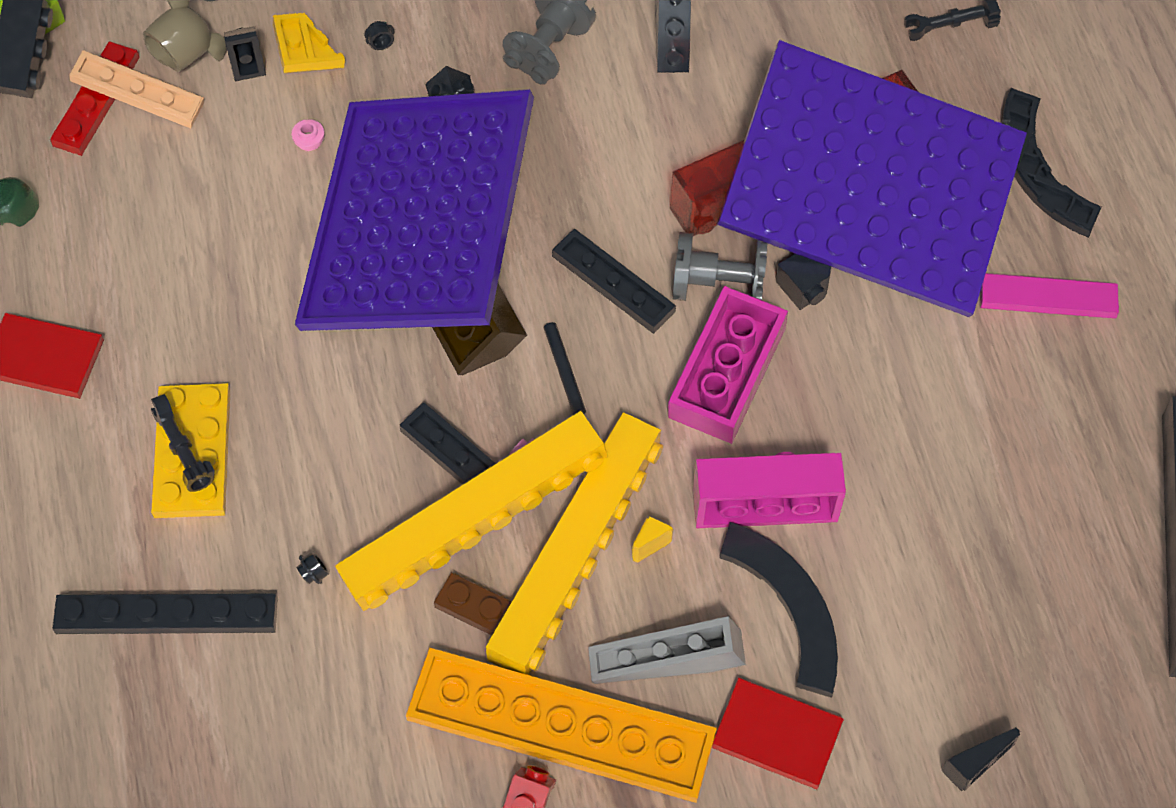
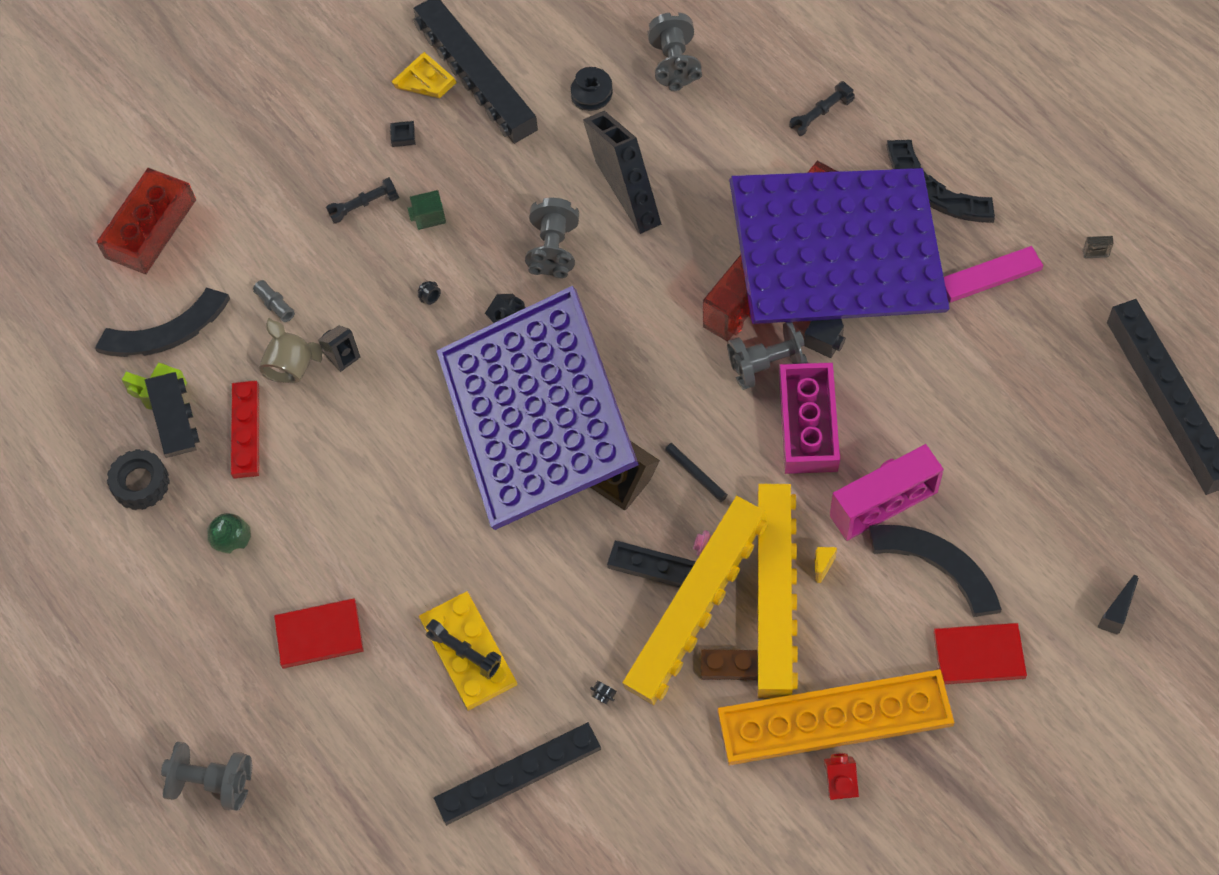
camera: 20 degrees left, 0 degrees up
(136, 89) = (275, 409): light nougat tile -> none
(303, 45) = (377, 324): yellow wing -> none
(308, 141) = (423, 391): bright pink plate -> none
(614, 281) = (695, 395): black plate -> none
(670, 652) = (879, 634): light grey slope -> none

